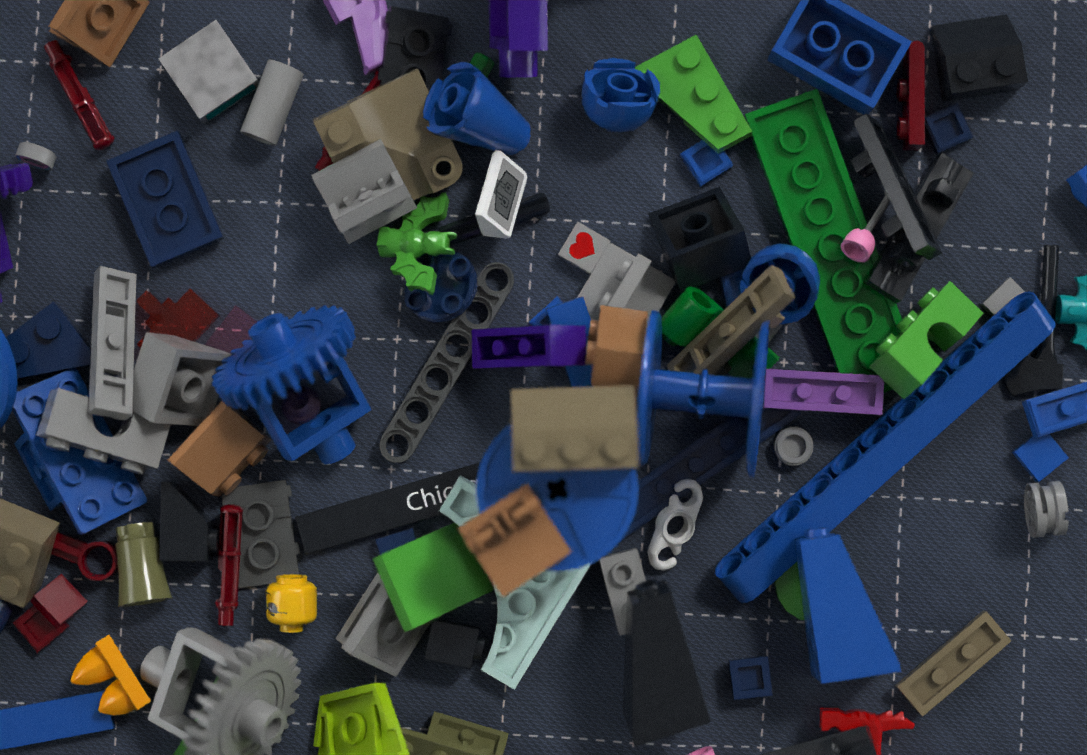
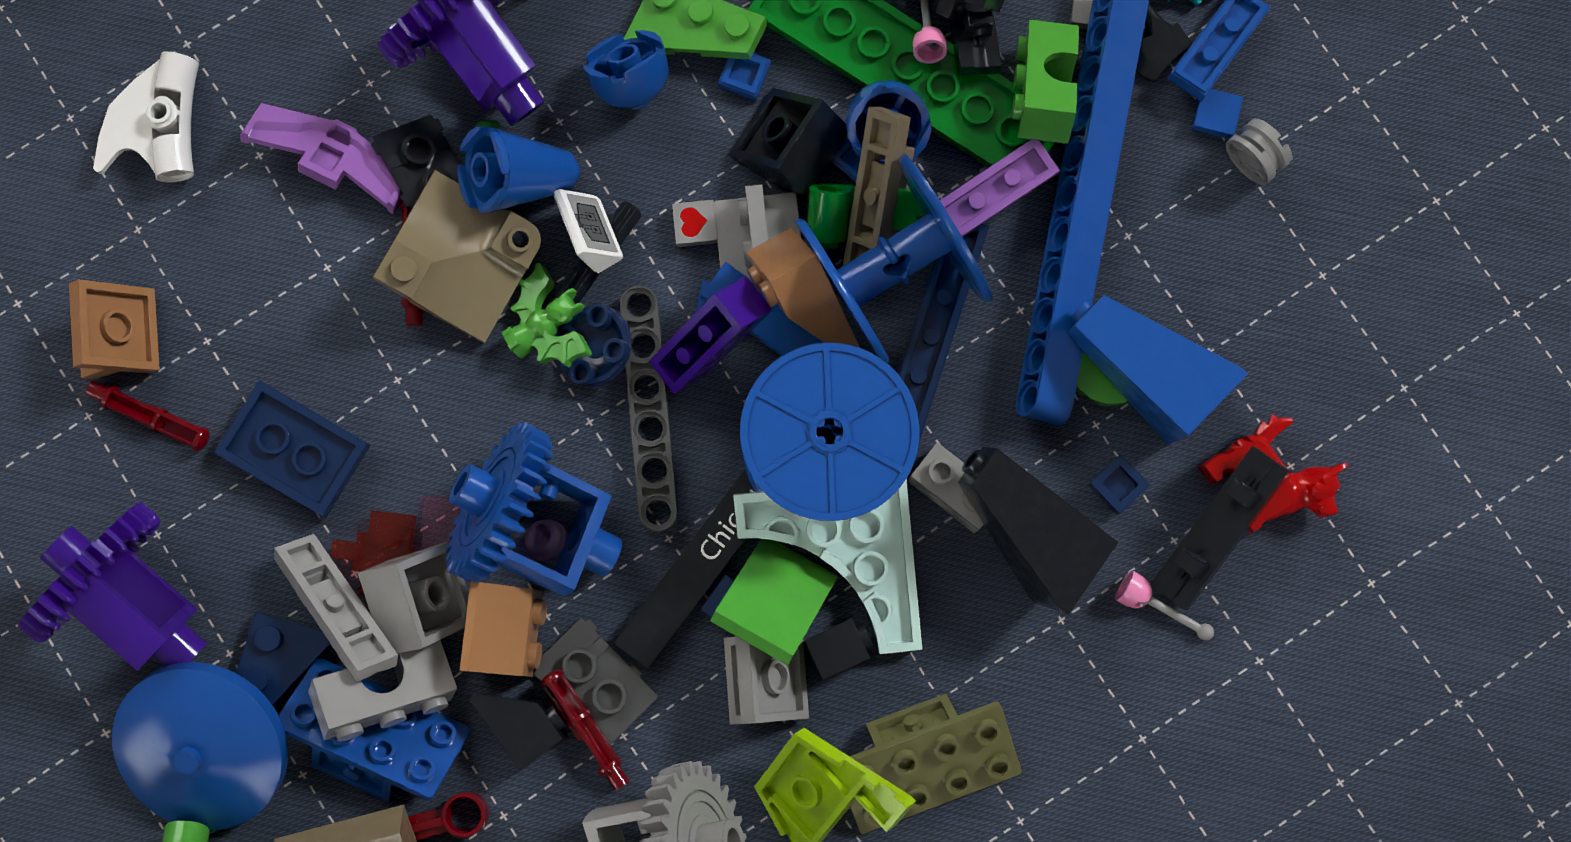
camera: 30 degrees left, 5 degrees down
(36, 156) = (150, 492): light grey tile -> none
(139, 566) = (506, 791): olive plant -> none
(209, 72) = (252, 309): flat silver piece -> none
(272, 102) = (326, 295): light grey pin -> none
(291, 602) = (666, 720): yellow head -> none
(364, 191) = (465, 309): light grey bracket -> none
(514, 540) = (825, 502): medium nougat hinge -> none
(574, 428) = (805, 364): dark tan slope -> none
(689, 512) = (957, 381): white piece -> none
(793, 446) = (1003, 259): light grey tile -> none
(953, 663) = (1282, 342): dark tan plate -> none

